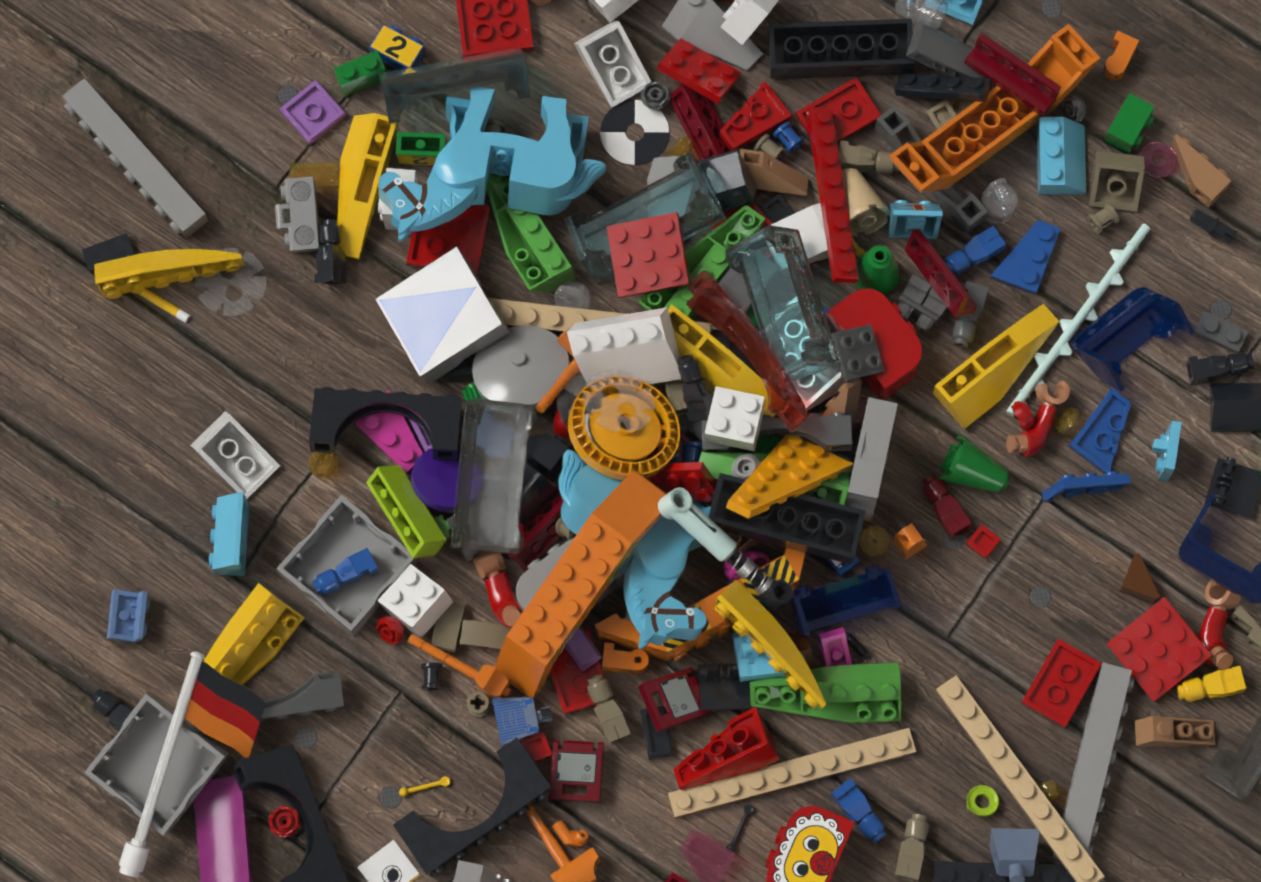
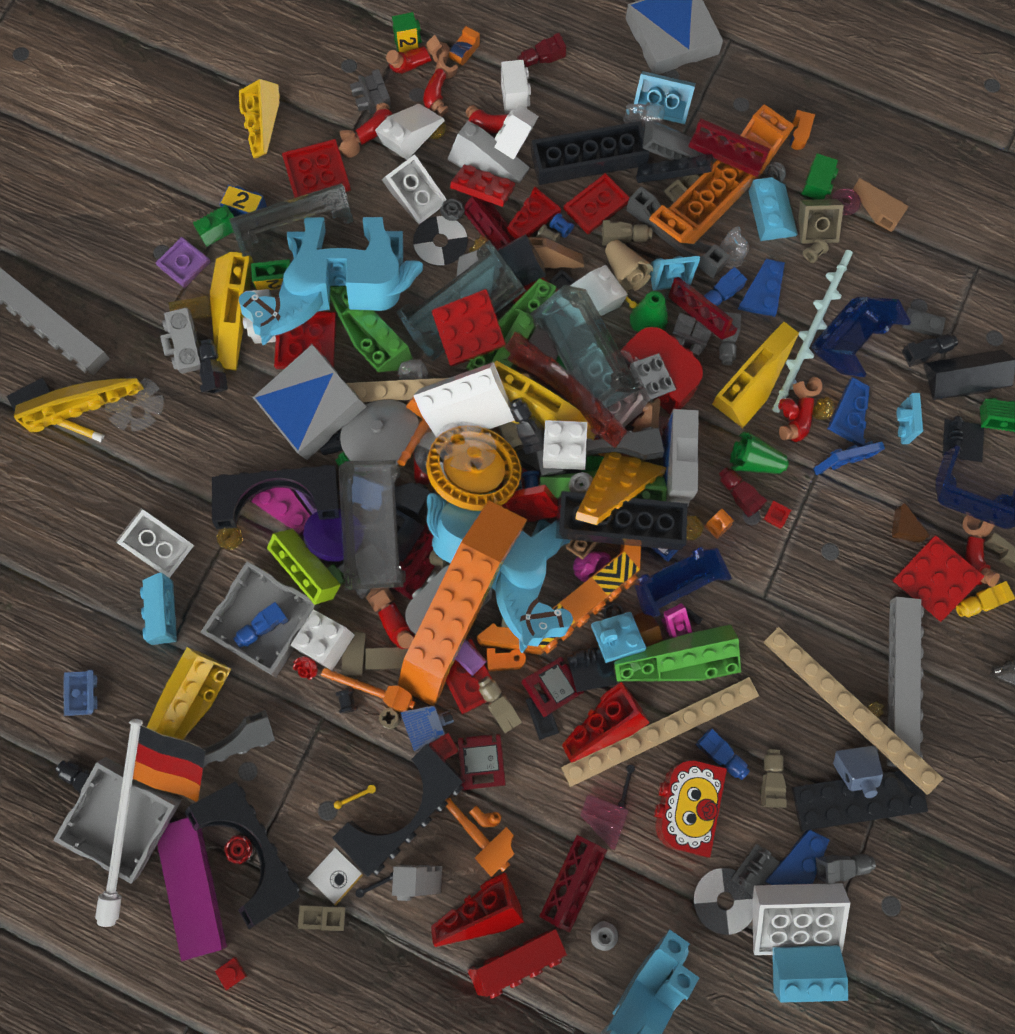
camera: 15 degrees left, 0 degrees up
(679, 506) = (534, 525): piece -> none
(768, 638) = (627, 624): yellow wedge -> none
(832, 195) = (606, 262): red plate -> none
(987, 792) = (829, 725): lime piece -> none
(1061, 683) = (864, 619): red plate -> none
(1174, 732) = (963, 644): medium nougat slope -> none
(1212, 226) = (900, 244): black axle -> none

